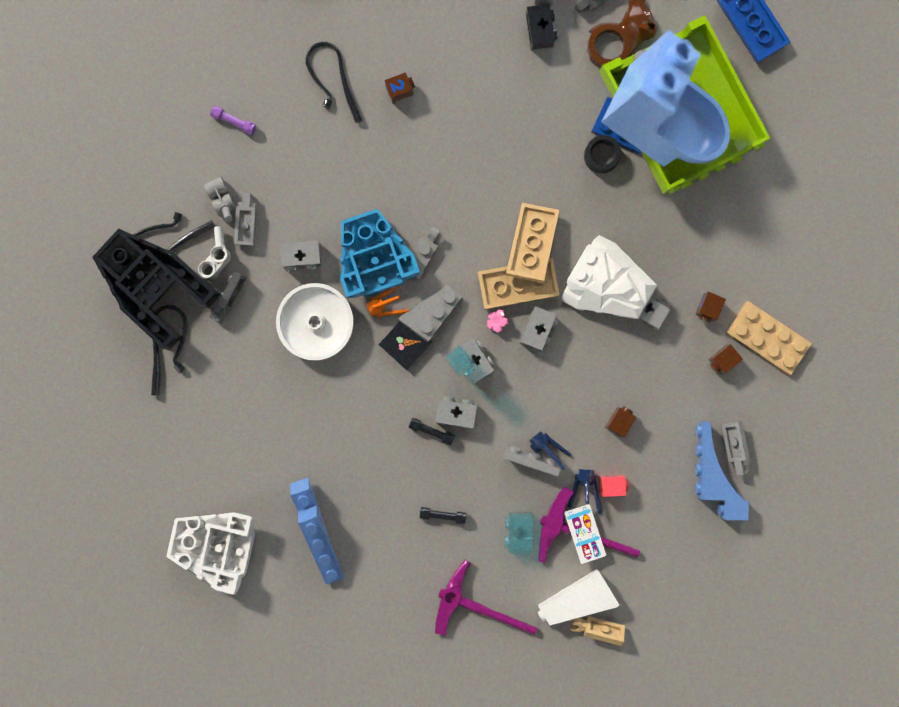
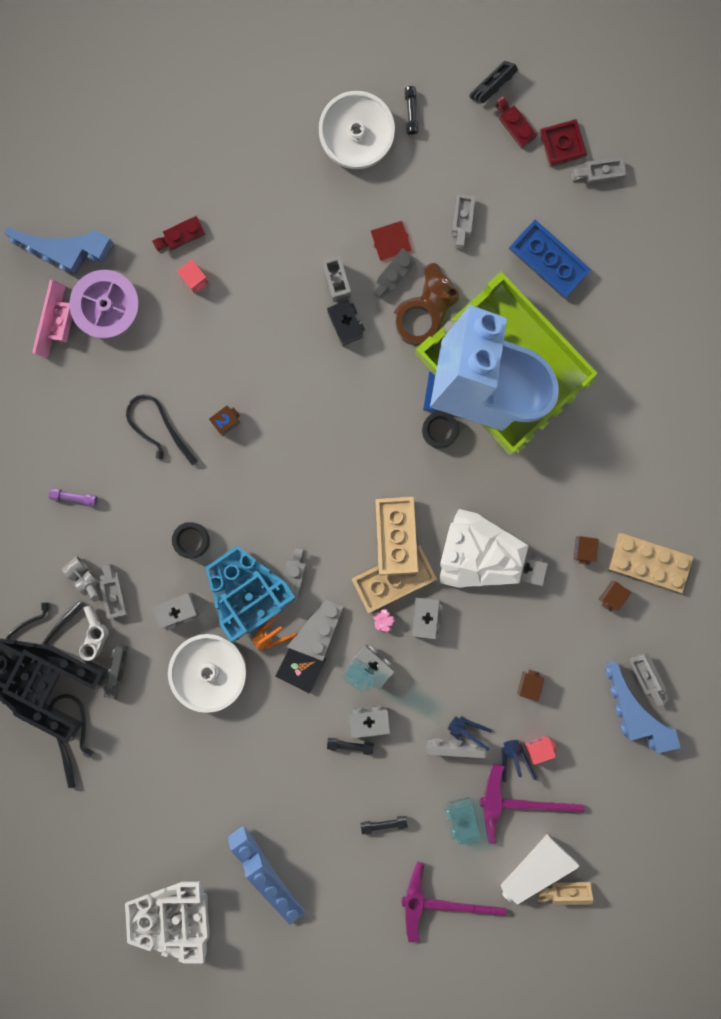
camera: 10 degrees left, 0 degrees up
(334, 178) = (176, 540): none -> black tyre
(585, 533) = (526, 804): sticker -> none

